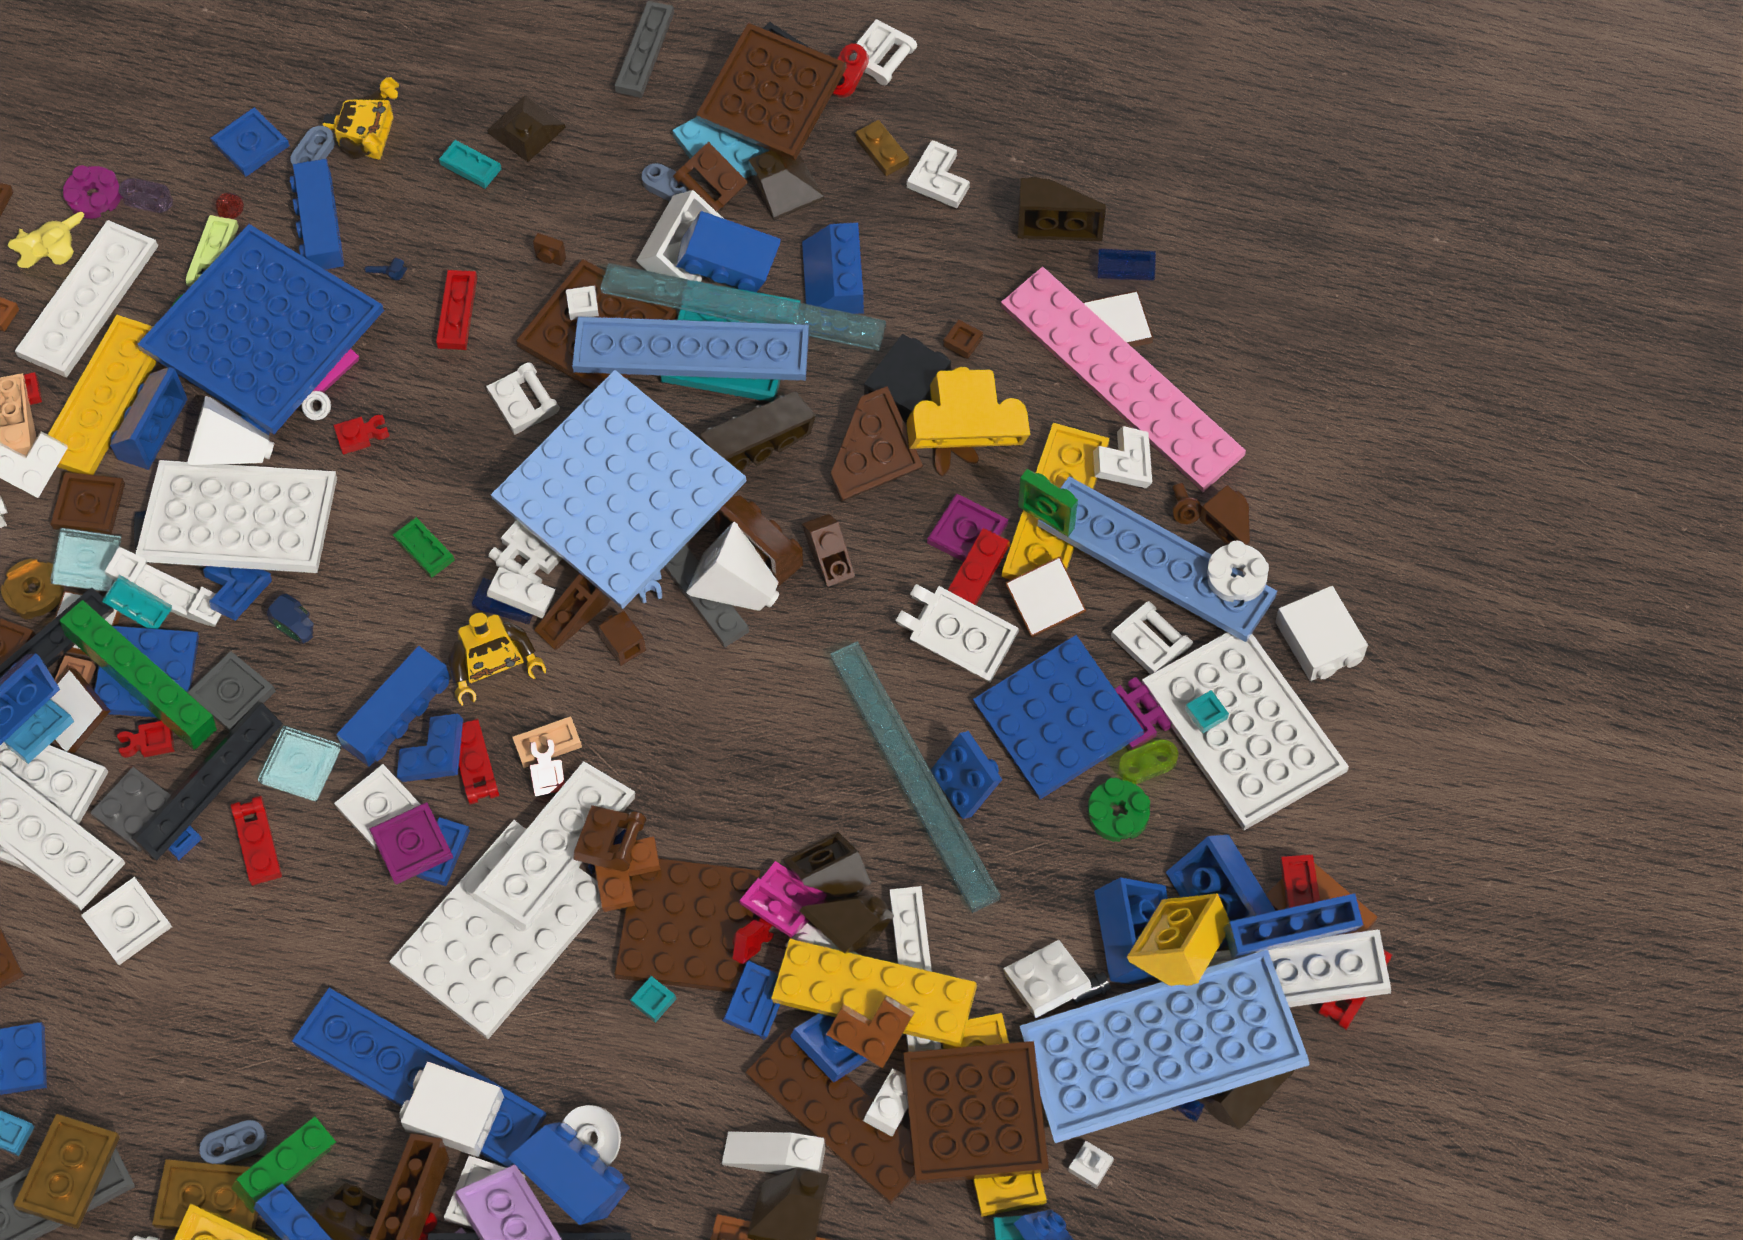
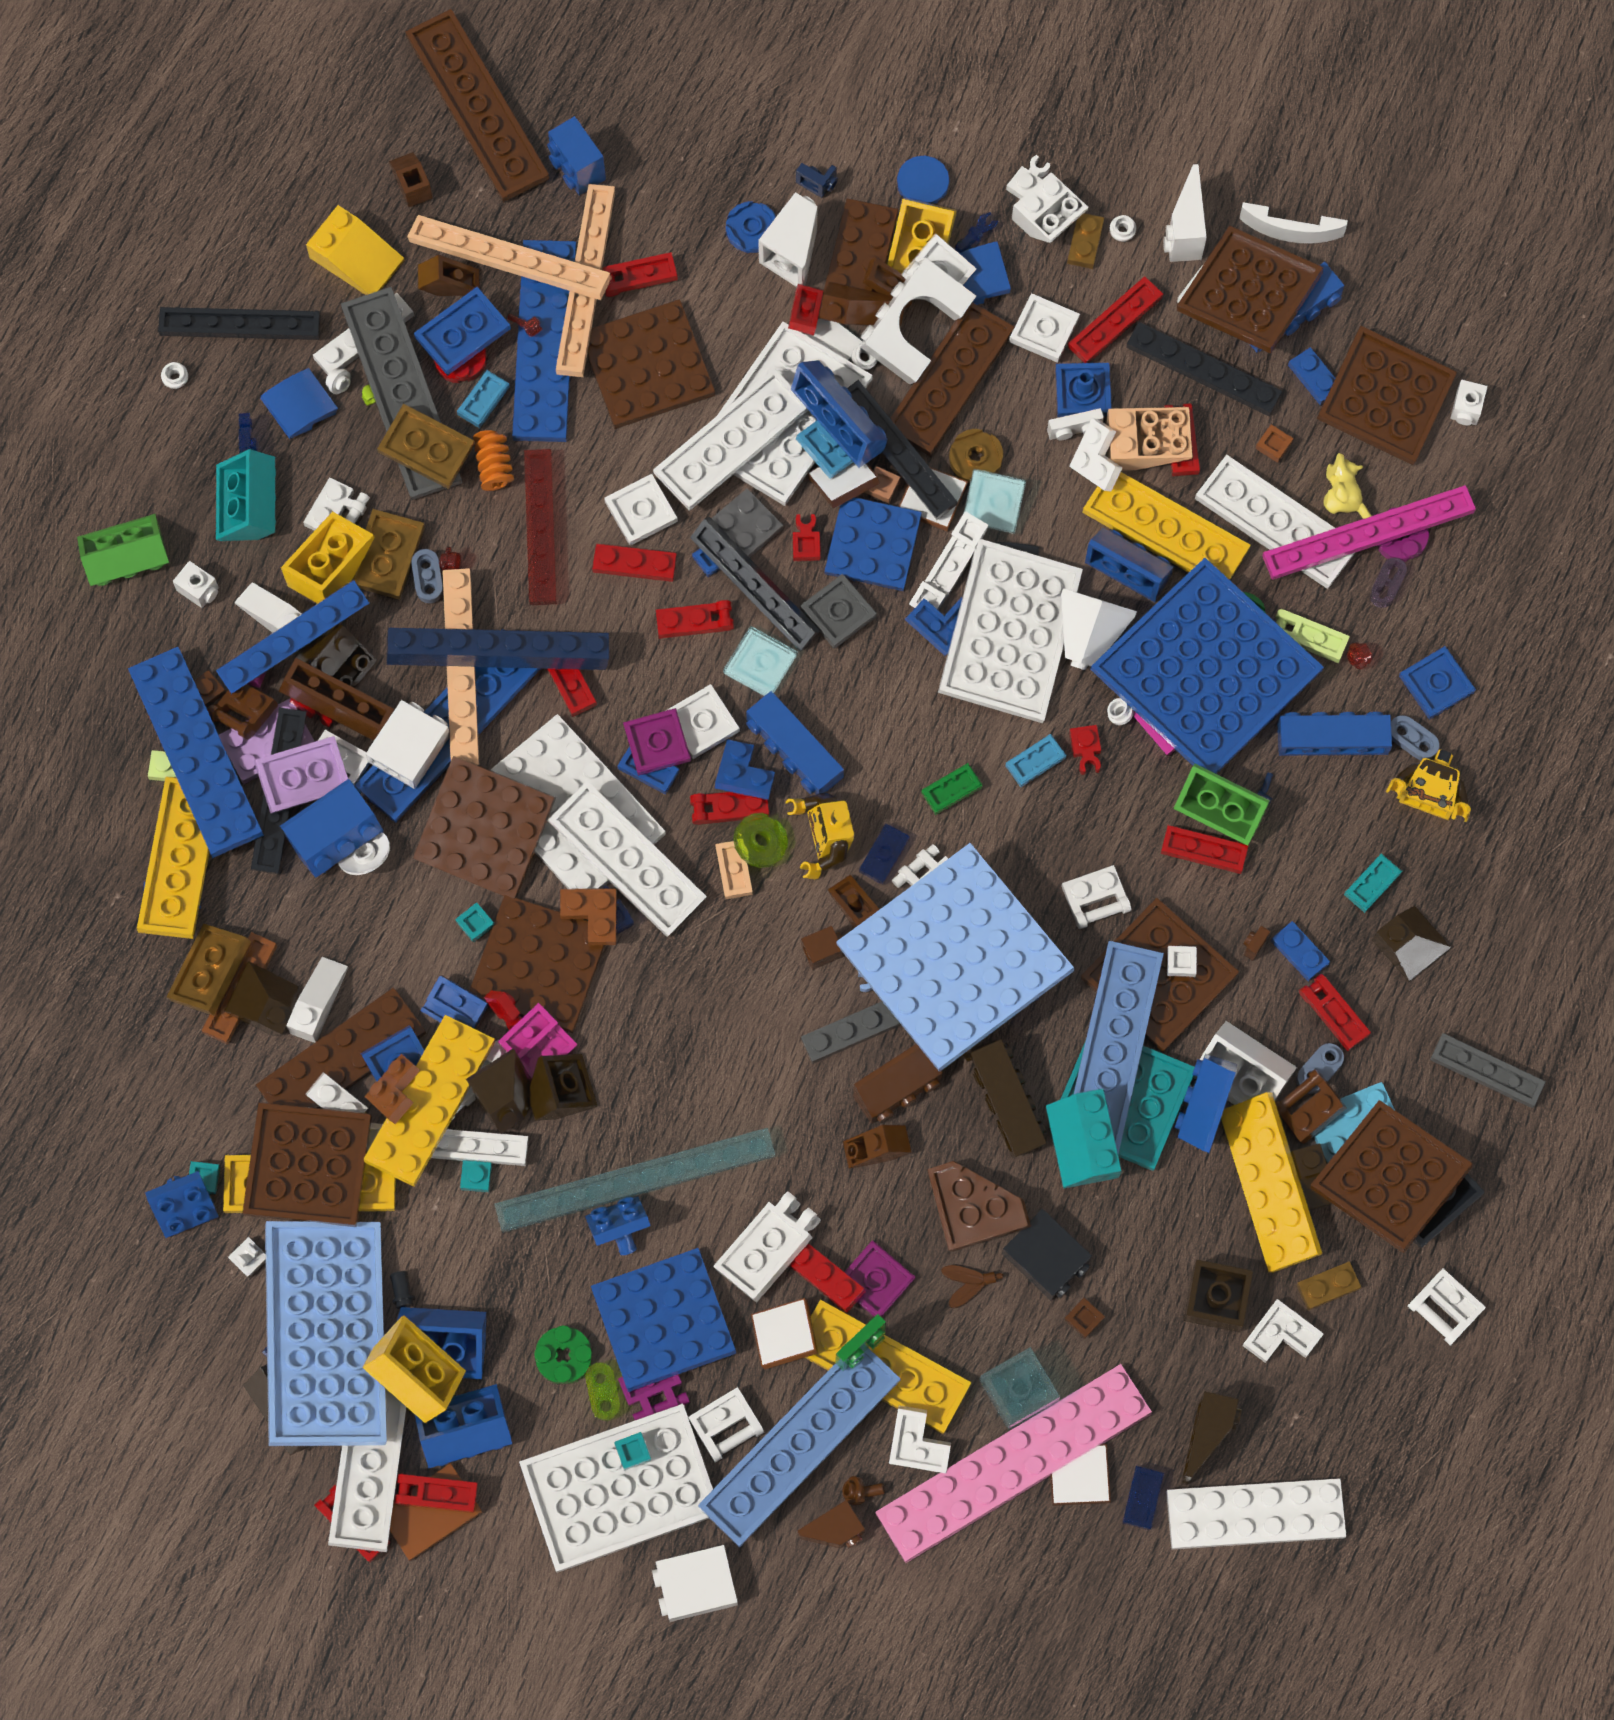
camera: 100 degrees right, 10 degrees up
(77, 1095) = (492, 460): none -> orange piece
(88, 503) = (1053, 507): reddish brown plate -> none
(95, 209) = (1368, 532): none -> dark pink plate
(137, 603) = (935, 538): teal plate -> none
(138, 675) = (857, 531): green brick -> none
(157, 1027) = (540, 527): none -> clear red plate
(192, 918) = (634, 562): none -> red plate
(213, 1119) = (450, 560): none -> clear red plate
(284, 1163) = (388, 600): green brick -> none
(291, 618) = (899, 668): dark blue rock -> none
(323, 1028) = (497, 648): none -> dark blue brick
(344, 959) = (573, 690): none -> red plate
(352, 1073) = (461, 680): none -> light nougat plate
(381, 474) = (1035, 760): none -> dark azure plate
(408, 291) = (1221, 804): none -> bright green slope
(510, 732) = (750, 850): none -> clear neon green tile
(520, 592) = (883, 864): white plate -> none
(540, 1006) = (484, 827): none -> reddish brown plate
(546, 773) = (702, 862): plate -> none
(550, 215) = (1300, 951): none -> blue plate
(599, 834) = (621, 893): reddish brown plate -> none
(608, 177) = (1335, 1012): none -> red plate
(734, 573) = (860, 1050): white slope -> none
(741, 305) = (1153, 1111): clear light blue plate -> none
(788, 347) = (1083, 1139): none -> teal slope
(802, 194) = (1270, 1182): none -> yellow plate
(834, 268) = (1184, 1209): blue slope -> none
(853, 71) = (1421, 1266): red plate -> none
(916, 226) = (1218, 1295): none -> dark brown brick
(943, 939) = (476, 1176): none -> teal plate
(966, 413) = (989, 1297): yellow brick -> none
(1047, 978) = (416, 1254): white plate -> none
(1050, 377) = (1019, 1388): none -> clear light blue brick
(1116, 175) = (1256, 1514): none -> white plate
(1238, 588) = (746, 1506): white plate -> none
(1293, 925) = (399, 1467): blue brick -> none

